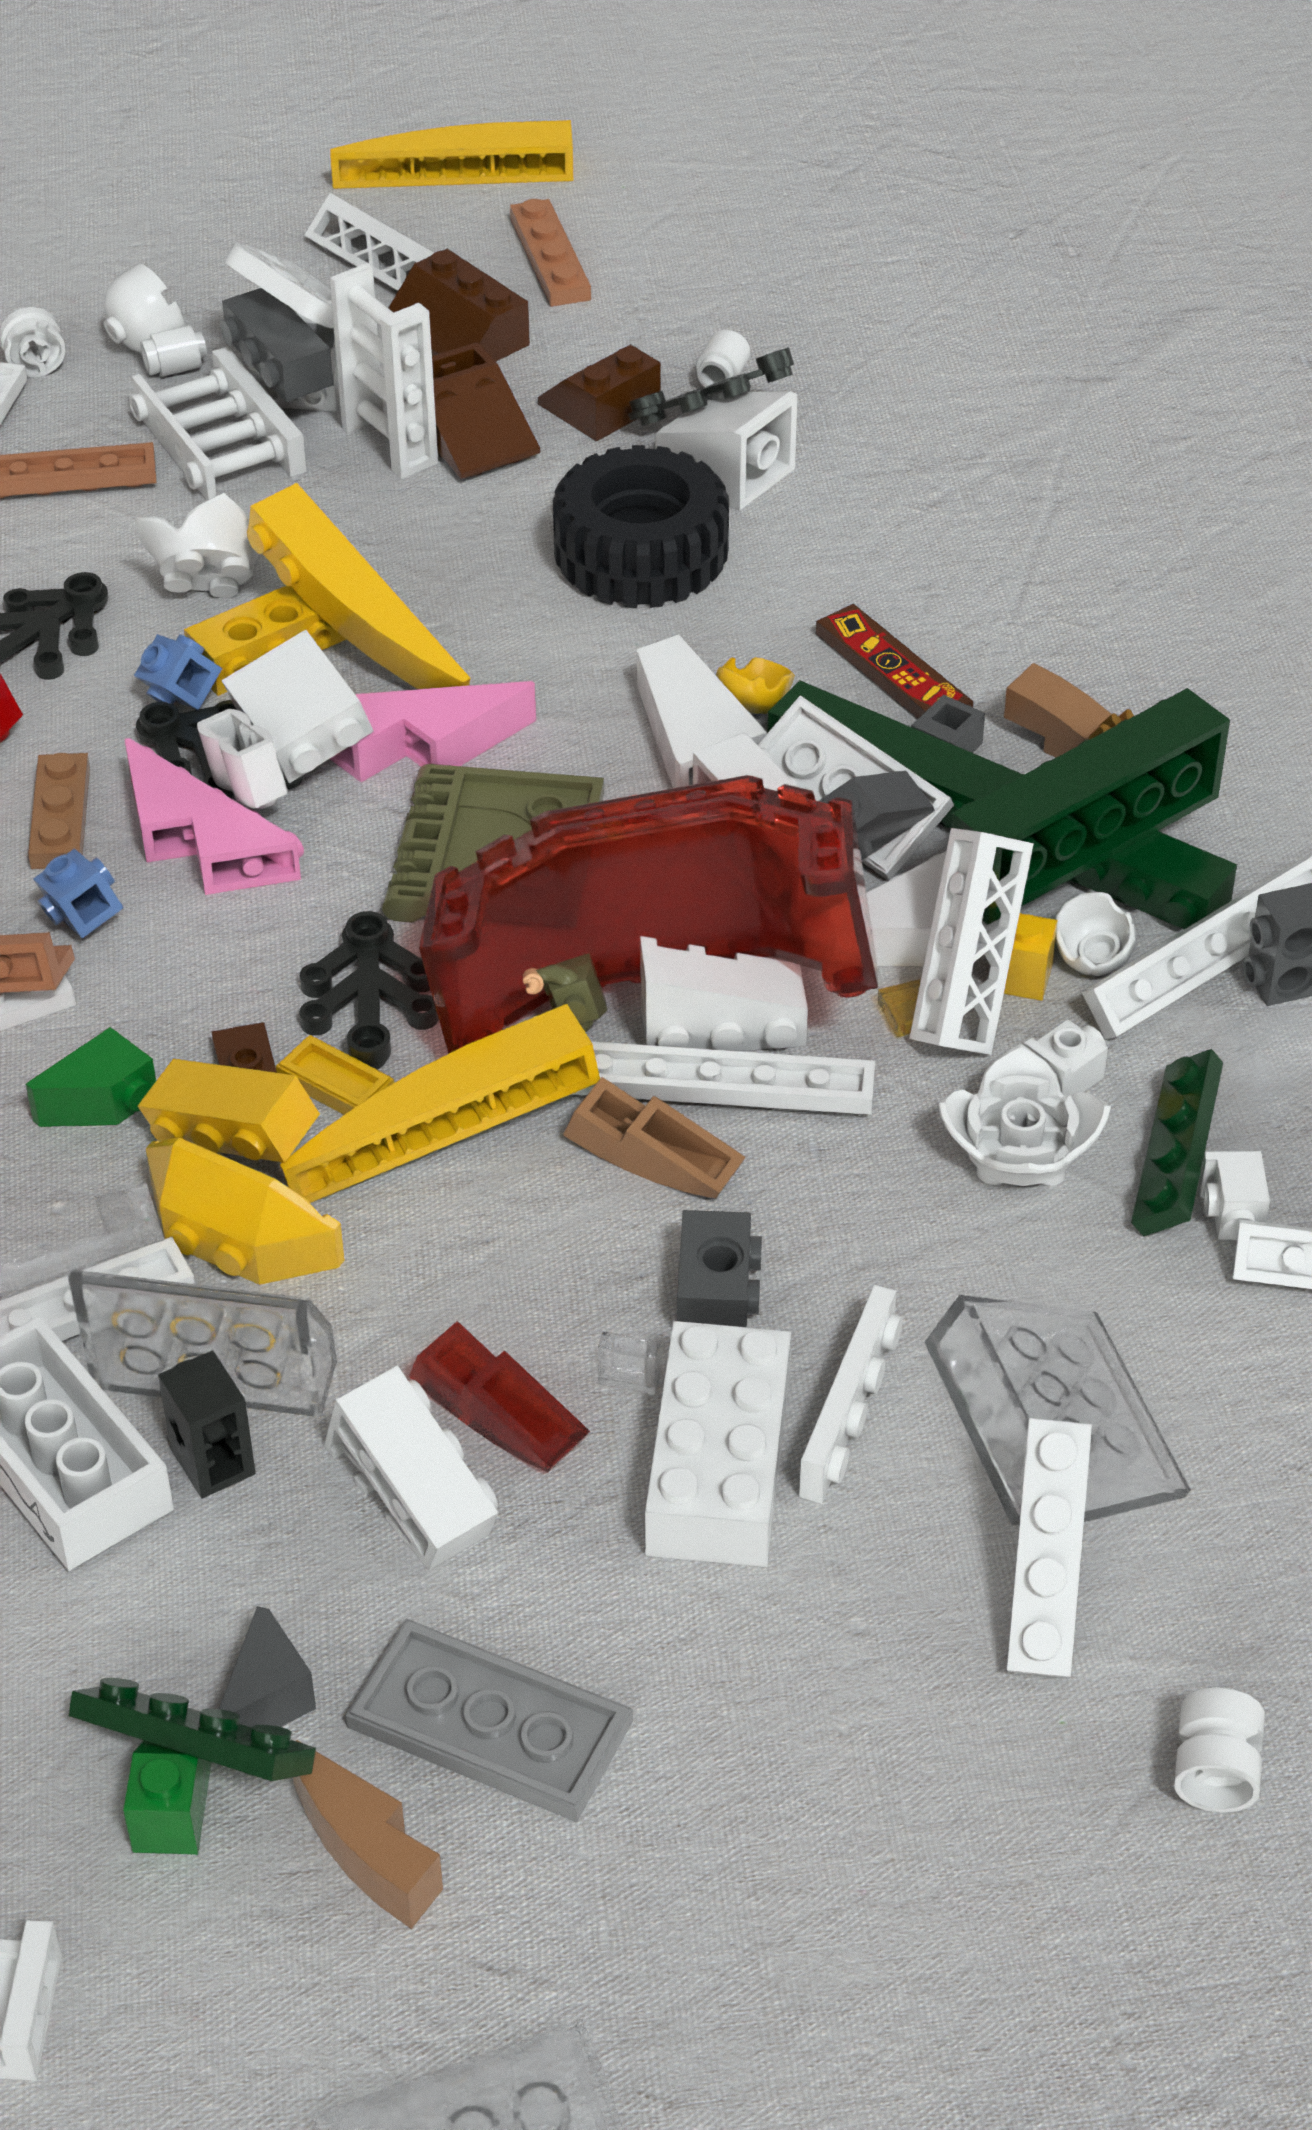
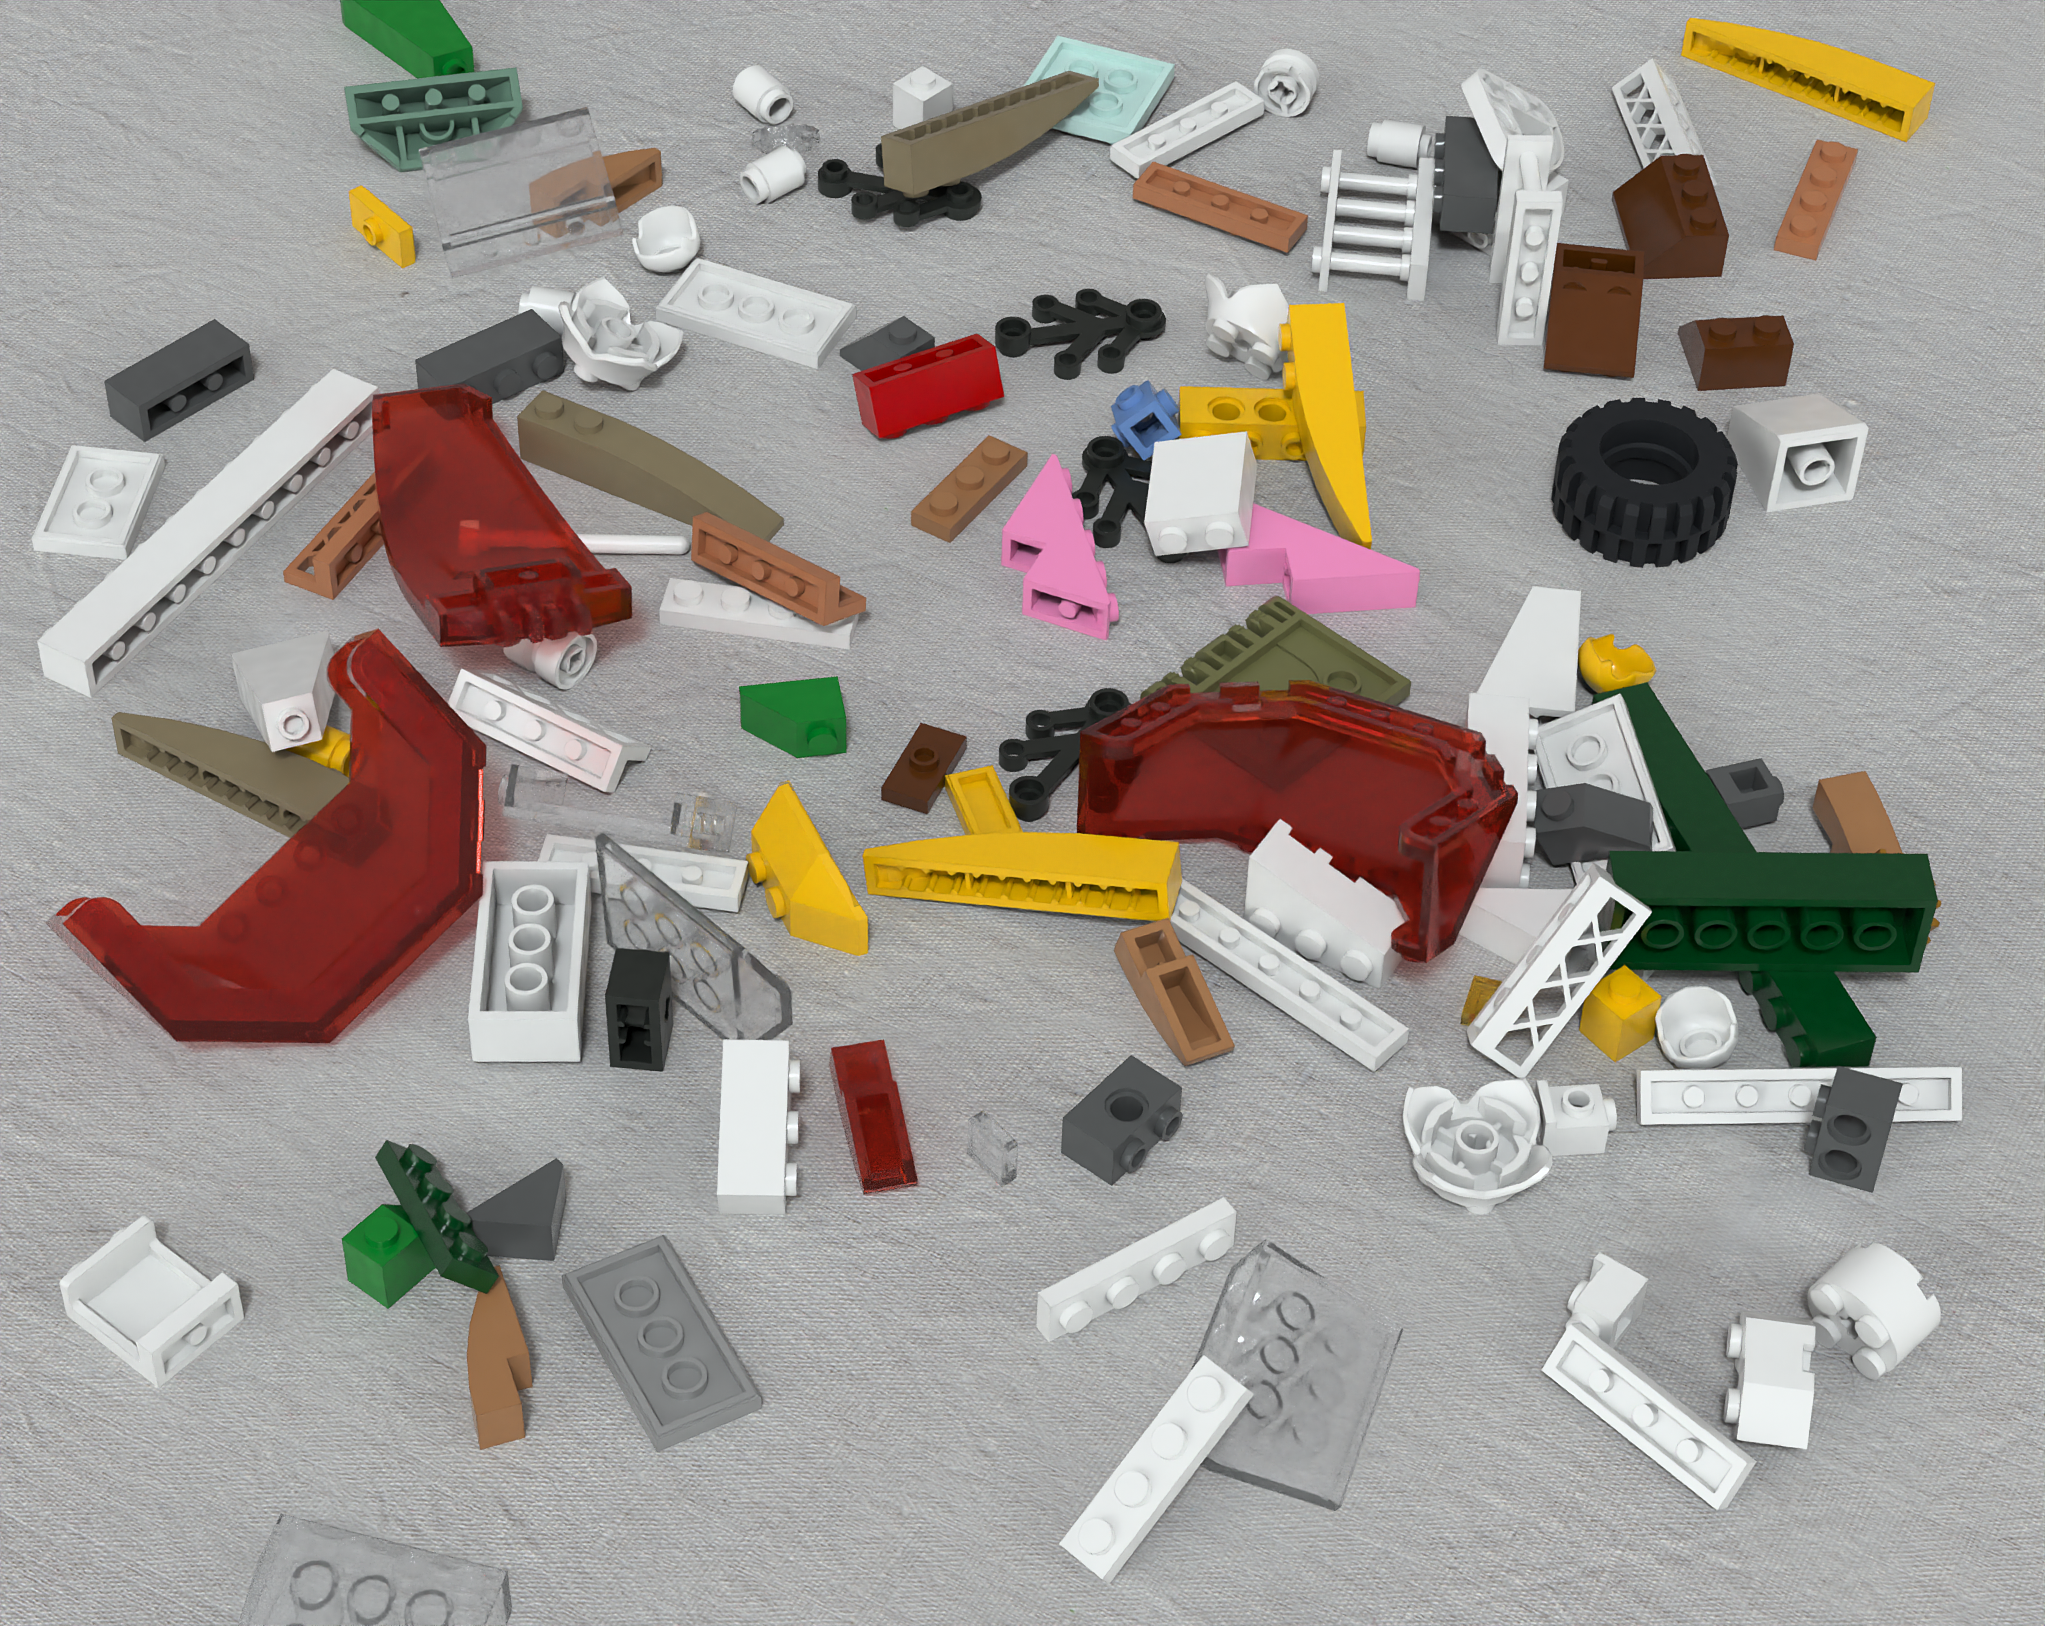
camera: 35 degrees right, 0 degrees up
(77, 892) = (912, 559): medium blue brick -> none
(138, 308) = (1391, 91): white cylinder -> none
(230, 1109) = (862, 787): yellow brick -> none
(242, 758) = (1120, 516): white brick -> none
(573, 984) = (1209, 839): olive piece -> none
(652, 406) = (1763, 383): pearl dark grey plant -> none
(718, 1444) = (999, 1246): white brick -> none
(722, 357) = (1870, 369): white brick -> none
(886, 660) = (1762, 708): tile -> none
(1177, 1143) = (1612, 1227): dark green plate -> none

